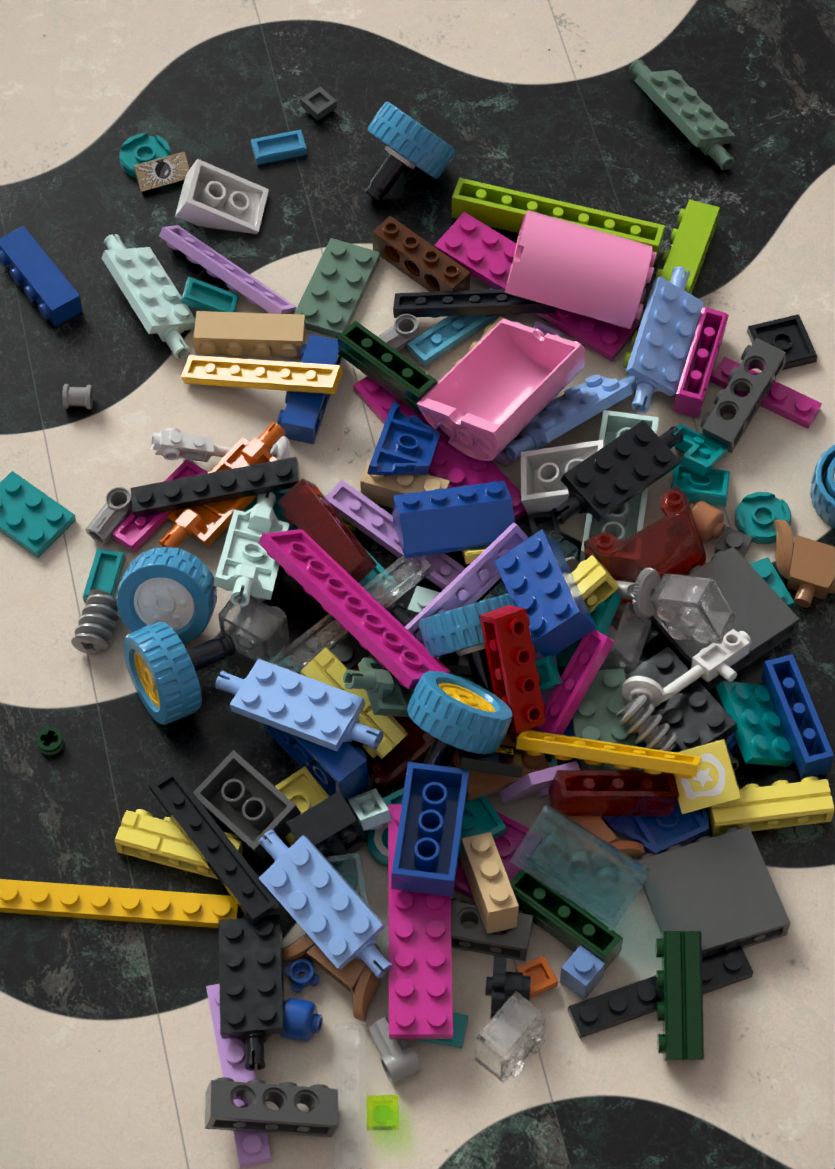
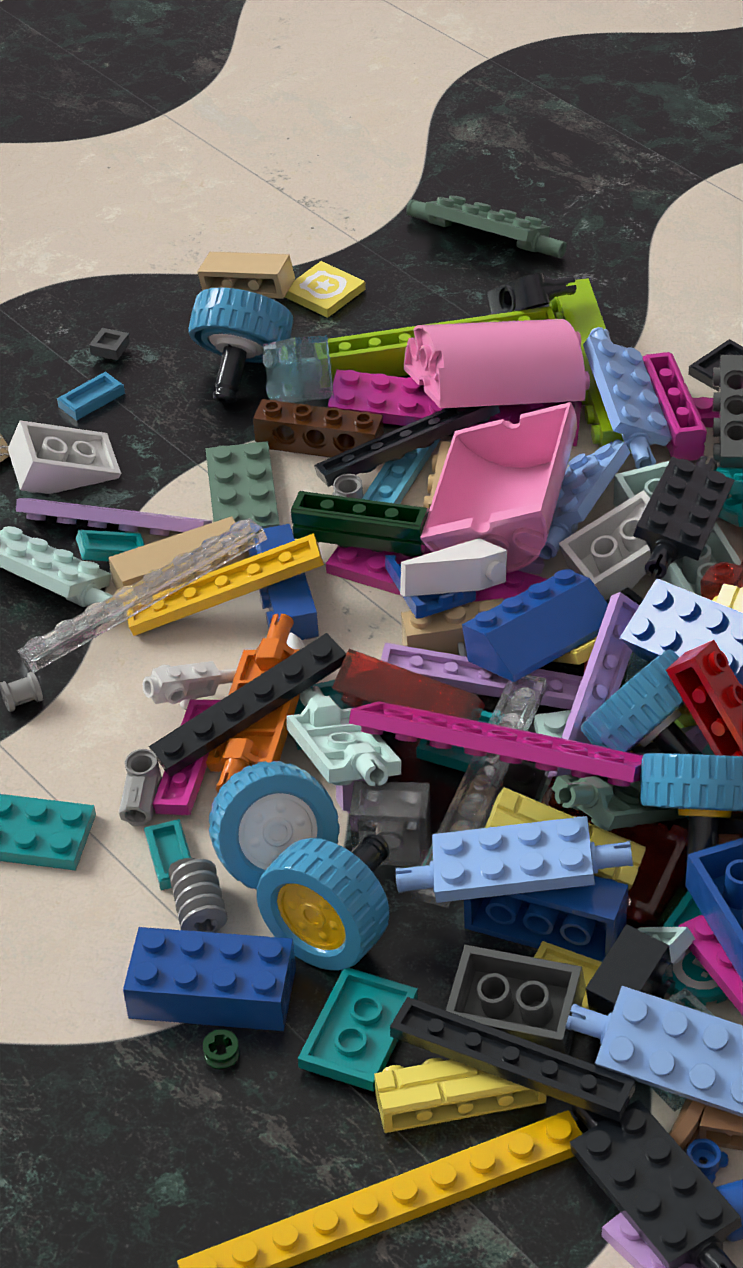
camera: 25 degrees left, 15 degrees down
(70, 687) = (210, 978): none -> blue brick
(129, 772) = (354, 1029): none -> teal plate
(202, 355) = (135, 598): none -> clear plate
(418, 445) = (455, 569): none -> white slope
(428, 203) = (298, 369): none -> clear light blue brick
(459, 82) = (254, 272): none -> tan brick
(516, 119) = (325, 289): none -> light yellow tile
(654, 207) = (528, 293): none -> black piece

